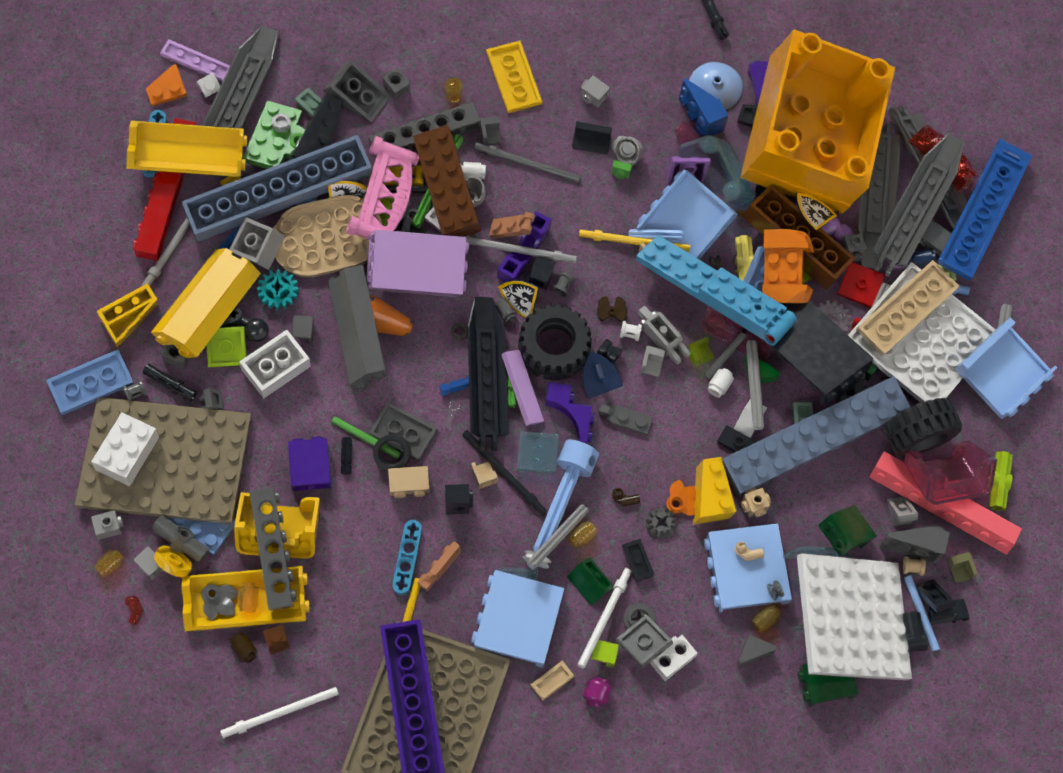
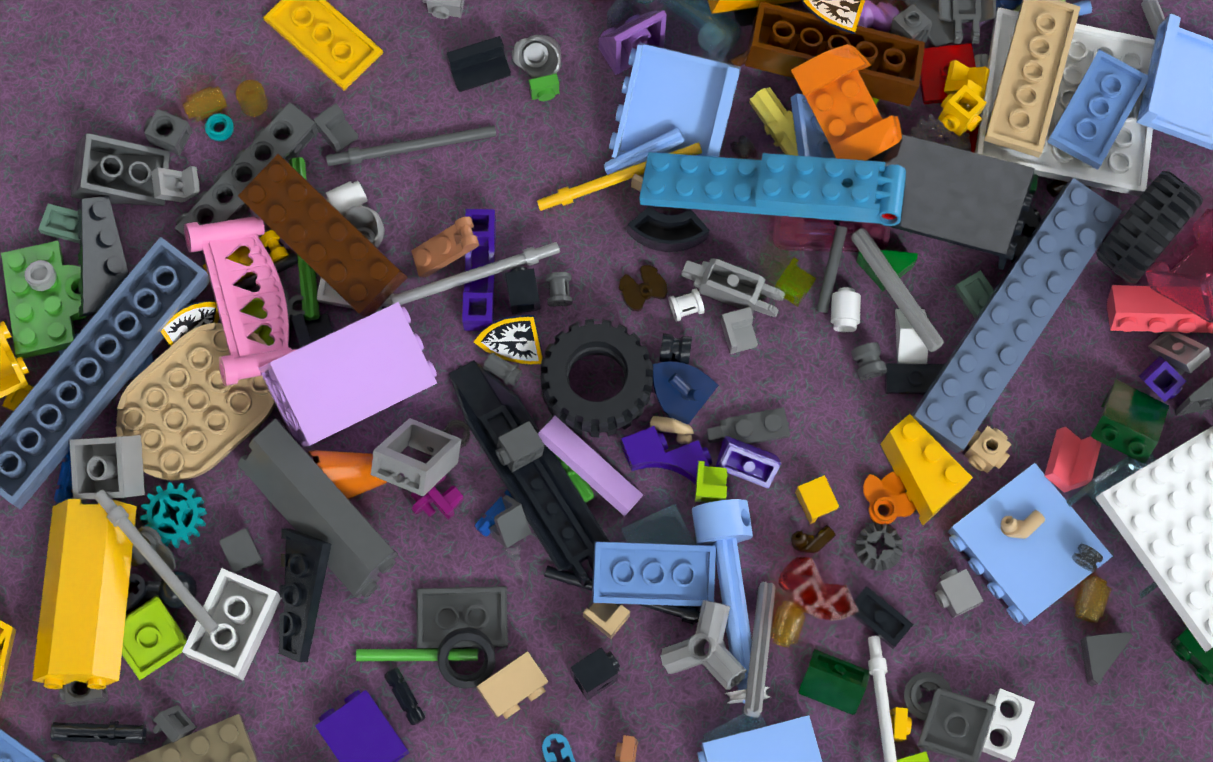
camera: 25 degrees left, 5 degrees up
(247, 272) = (119, 518): none -> light grey bar
(254, 301) = (163, 551): none -> dark grey plate
(327, 362) = (305, 573): none -> black wing
(383, 114) = (175, 184): none -> light grey bracket
(414, 320) = (419, 476): none -> light grey window
(425, 79) = (204, 103): none -> clear yellow brick
(426, 91) = (215, 120): none -> teal plate
(428, 347) = (445, 503): none -> magenta hips
(459, 393) = (510, 524): none -> dark grey panel
(488, 355) = (519, 447): none -> dark grey brick
(522, 464) = (653, 573): none -> medium blue plate
(528, 520) = (691, 652): none -> light grey piece
(583, 392) = (671, 425): none -> tan arm
(583, 431) = (710, 483): none -> lime panel
(604, 522) = (809, 593): none -> clear red brick
(613, 435) = (748, 462): none -> dark purple slope
(613, 623) = (900, 723): none -> yellow plate
(640, 475) = (816, 498): none -> yellow panel
(643, 285) = (668, 232): none -> black brick
(690, 571) = (957, 592): none -> light grey brick
(716, 417) = (868, 361): none -> dark grey wheel
(799, 533) = (1071, 460): none -> coral panel
(852, 306) = (962, 111): none -> yellow brick
(866, 293) = (960, 75): none -> yellow panel
(882, 520) = (1163, 379): none -> dark purple brick
(935, 348) = (1098, 109): none -> medium blue plate

